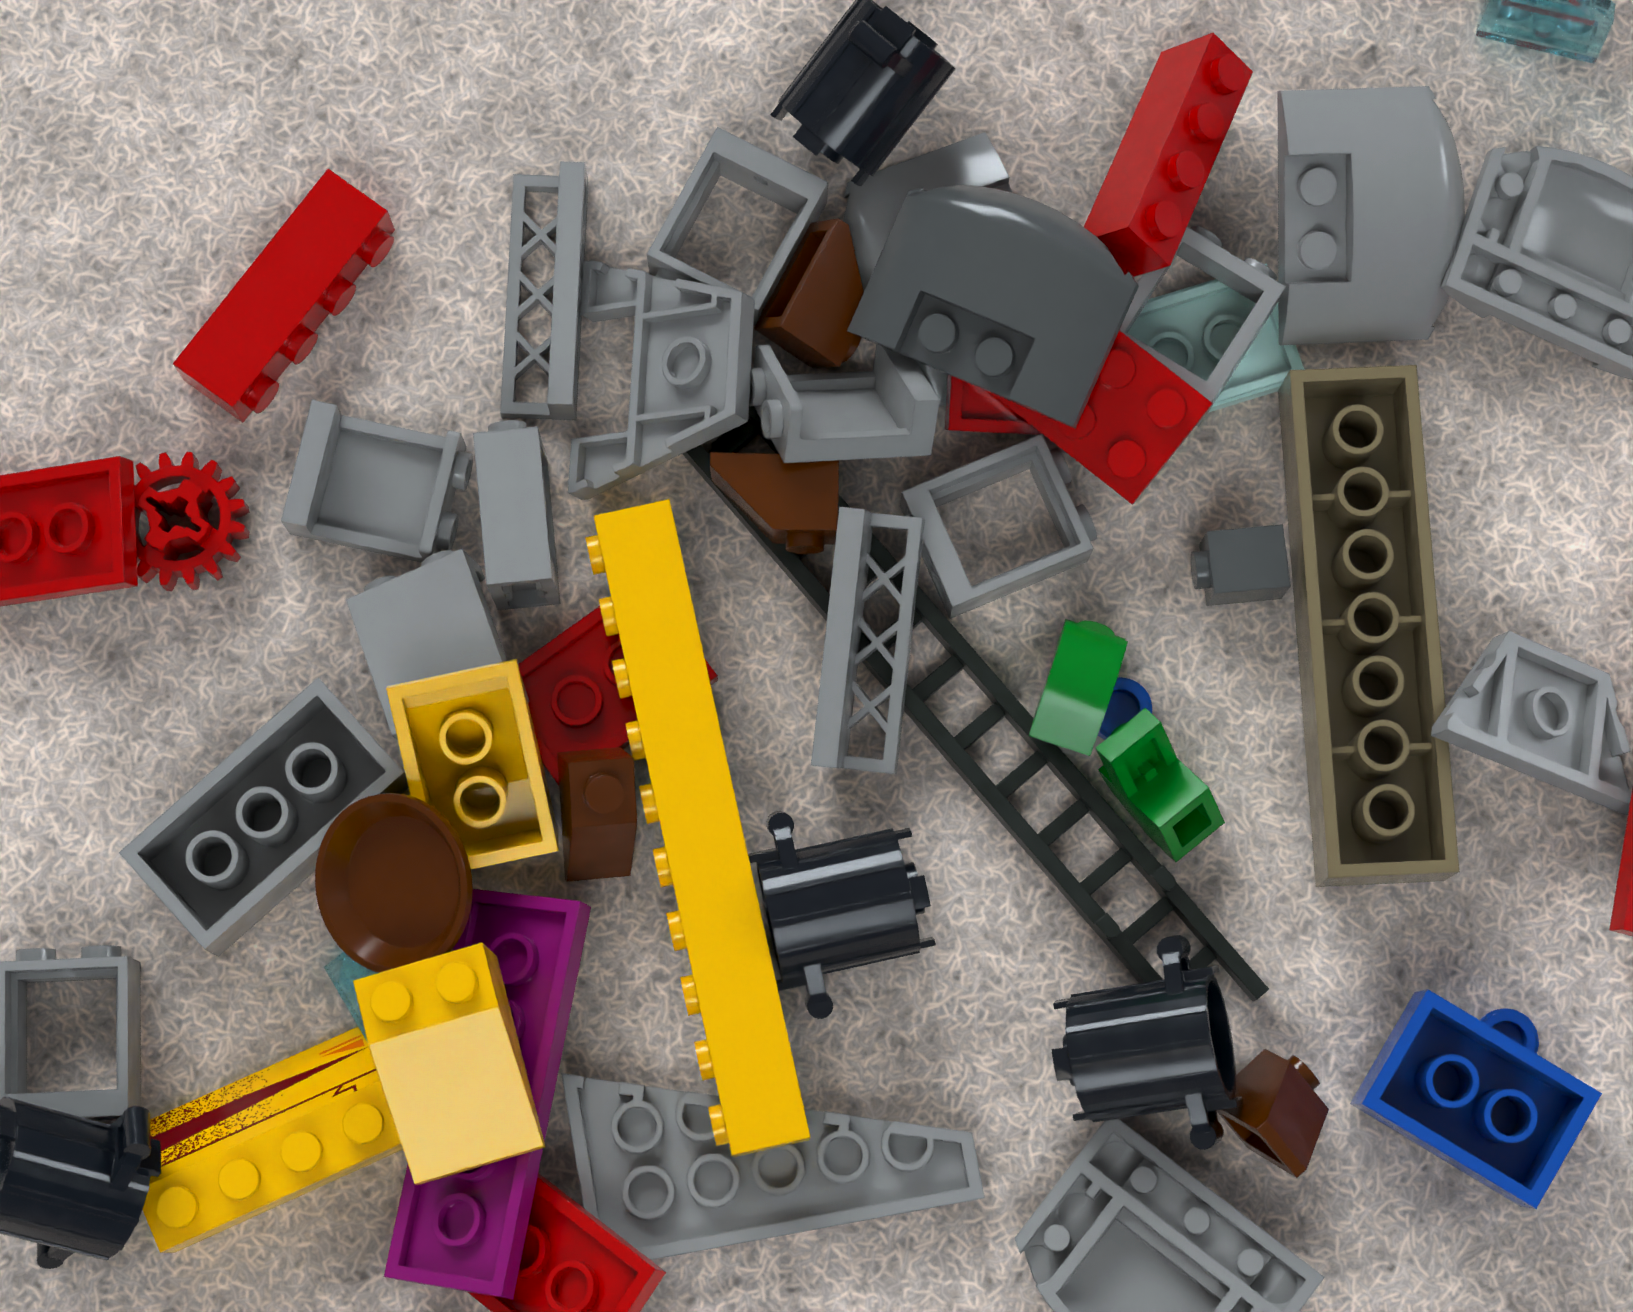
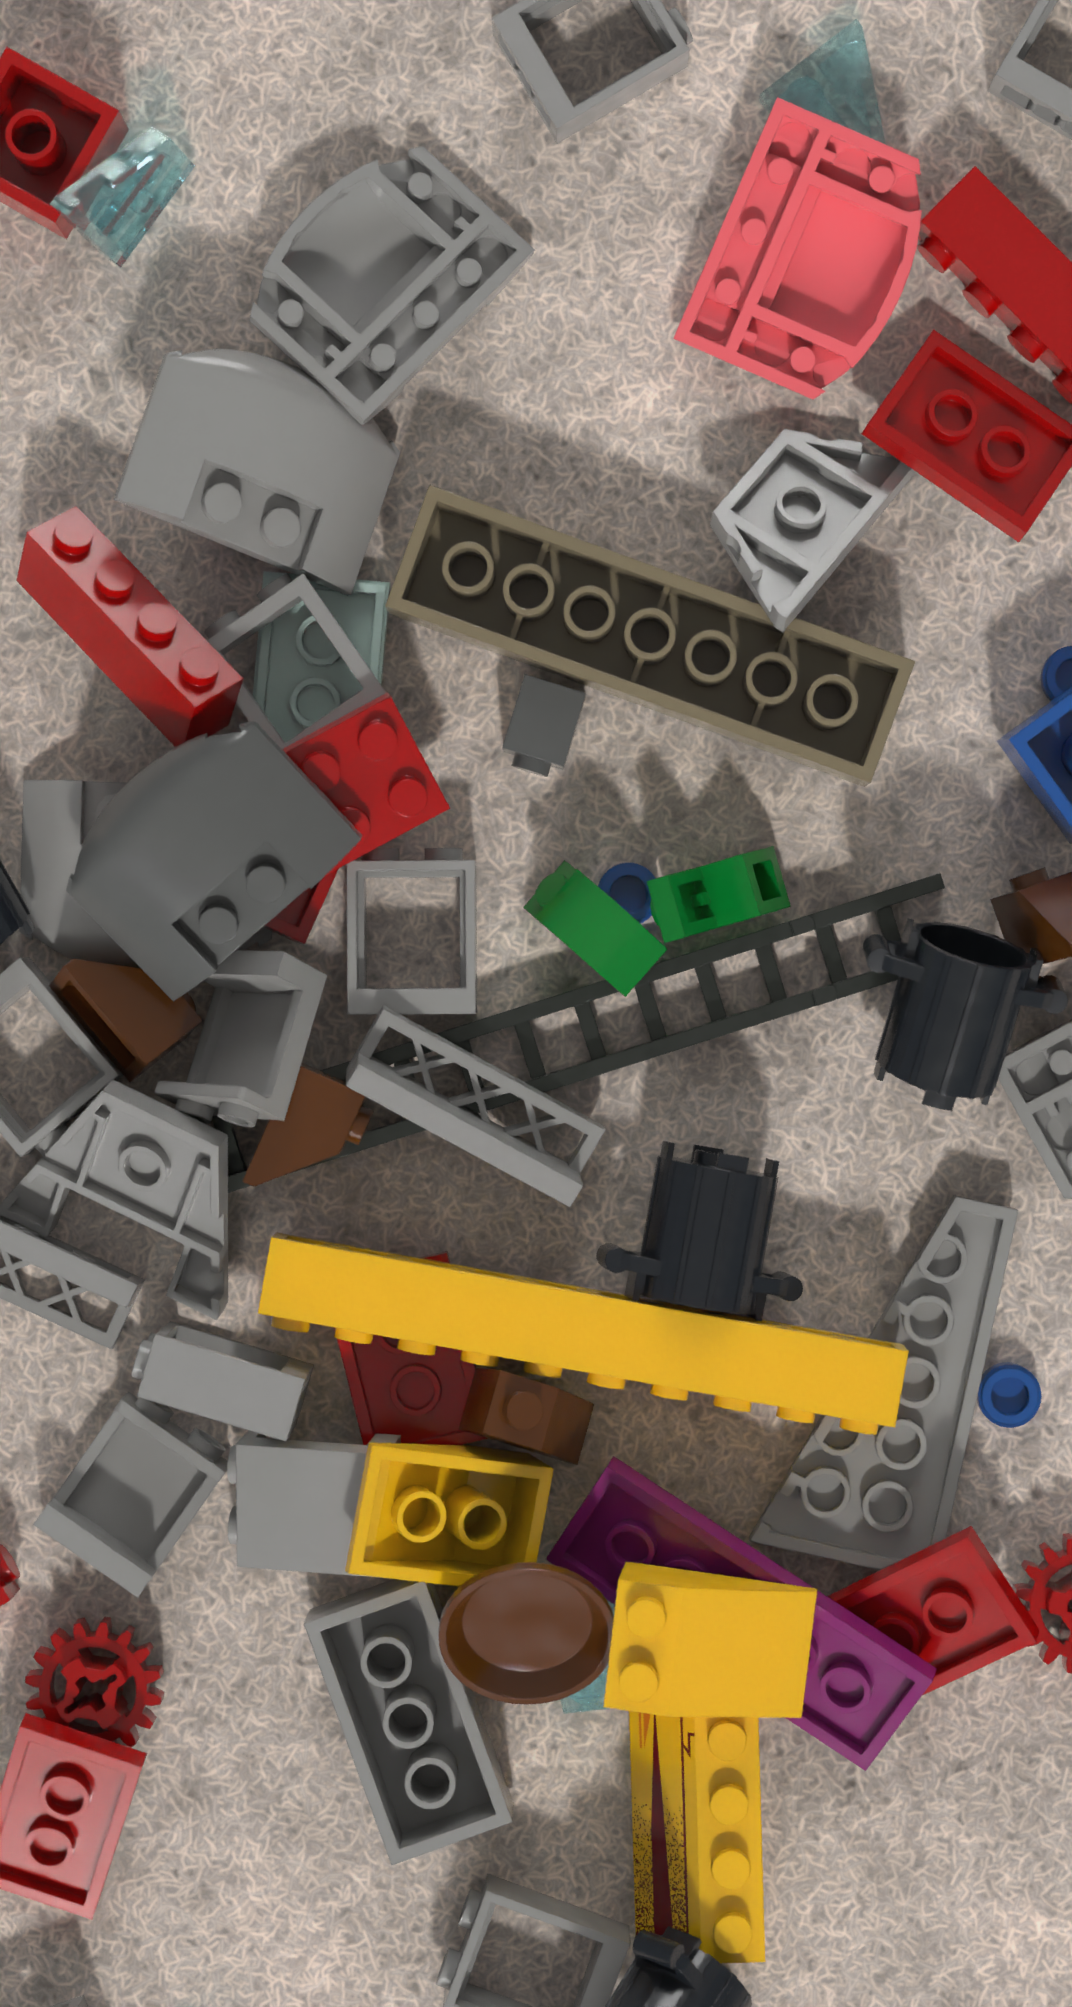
camera: 60 degrees left, 10 degrees up
(802, 1268) = (1009, 1395): none -> blue tile

